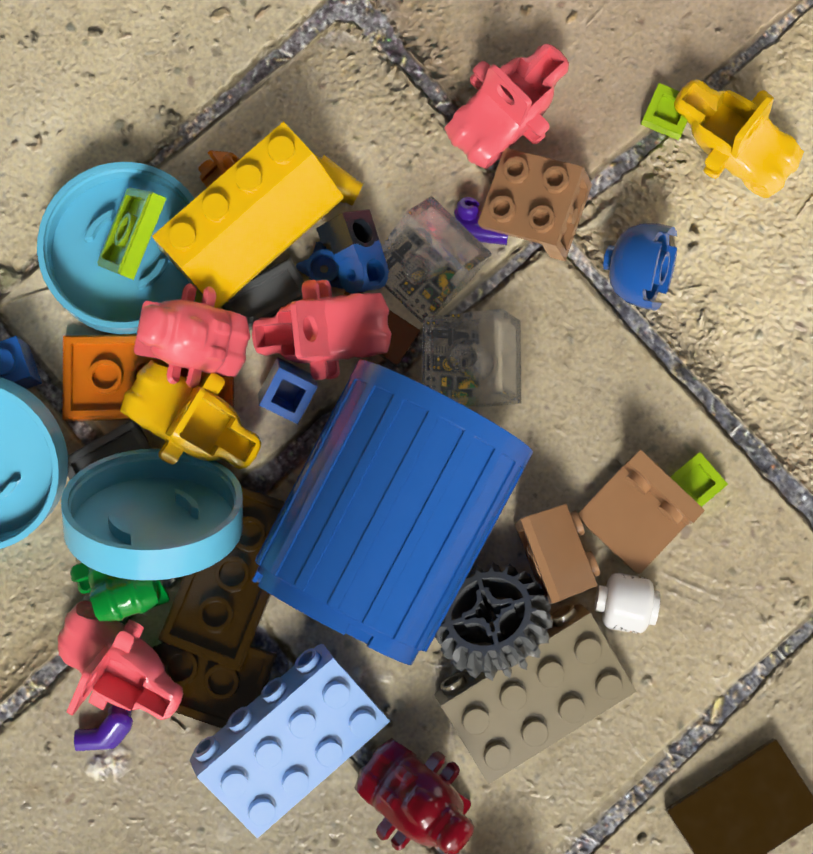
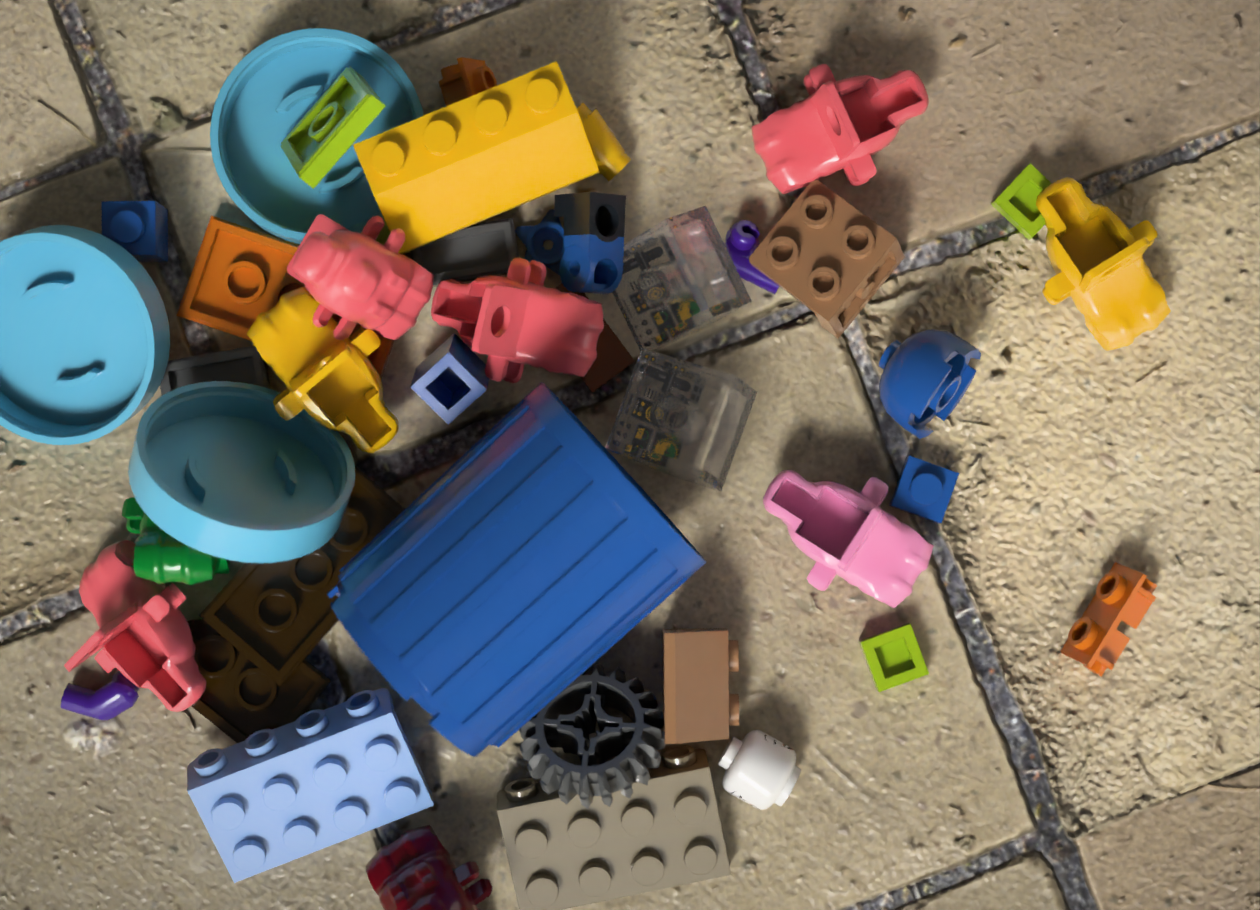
camera: 20 degrees right, 5 degrees up
(630, 401) = (849, 535): none -> bright pink piece
(639, 512) = (810, 669): medium nougat bracket -> none
(671, 349) = (924, 489): none -> blue plate

